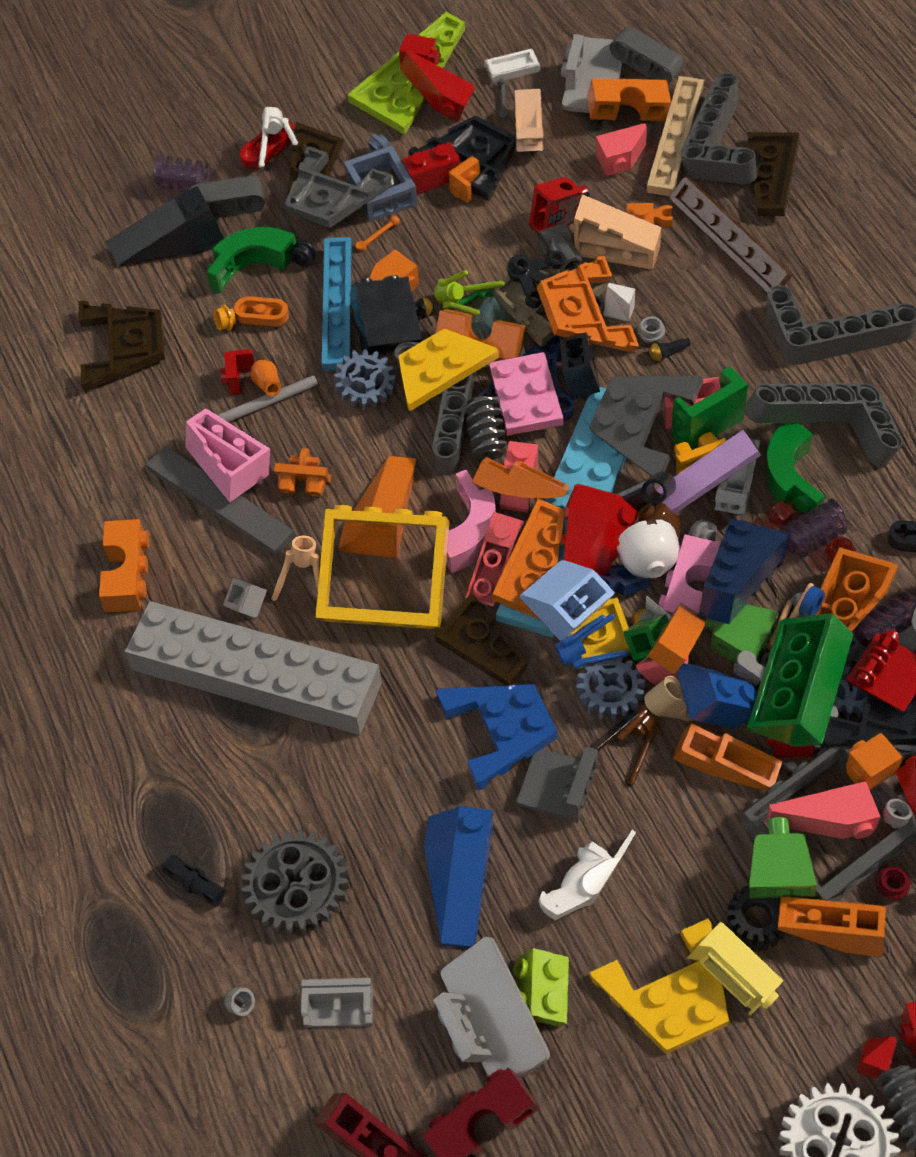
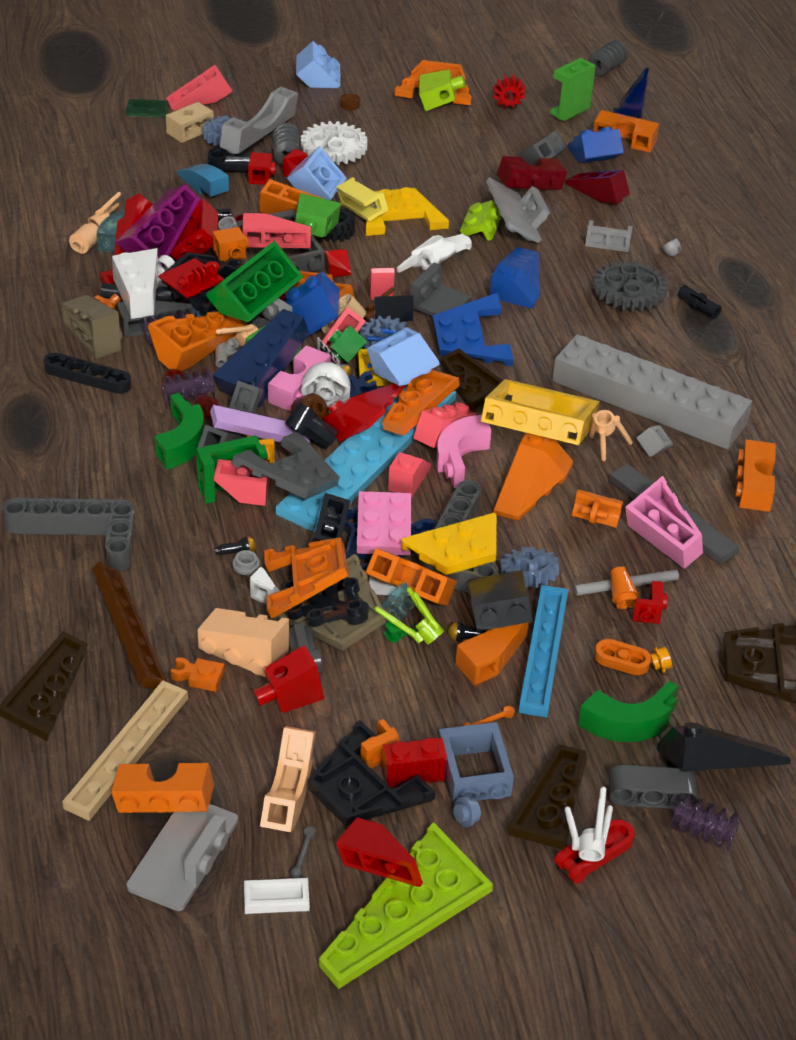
camera: 175 degrees left, 15 degrees down
(303, 253) = (571, 704): black bush -> none
(326, 198) = (543, 733): dark grey wing -> none
(421, 46) = (394, 897): red brick -> none
(483, 427) = (428, 498): dark grey piece -> none
(518, 481) = (413, 442): orange slope -> none
(620, 149) = (194, 741): coral slope -> none
(646, 55) = (114, 847): dark grey beam -> none
(649, 794) = (380, 281): none -> coral slope
(677, 638) = (331, 312): orange slope -> none
(701, 151) = (108, 712): dark grey beam -> none
(704, 530) = (274, 407): light grey plate -> none
(722, 824) = (337, 263): none -> red slope
(812, 601) = (219, 322): blue tile -> none
(826, 1024) = (317, 175): none -> light blue slope
(831, 402) = (109, 454): dark grey beam -> none

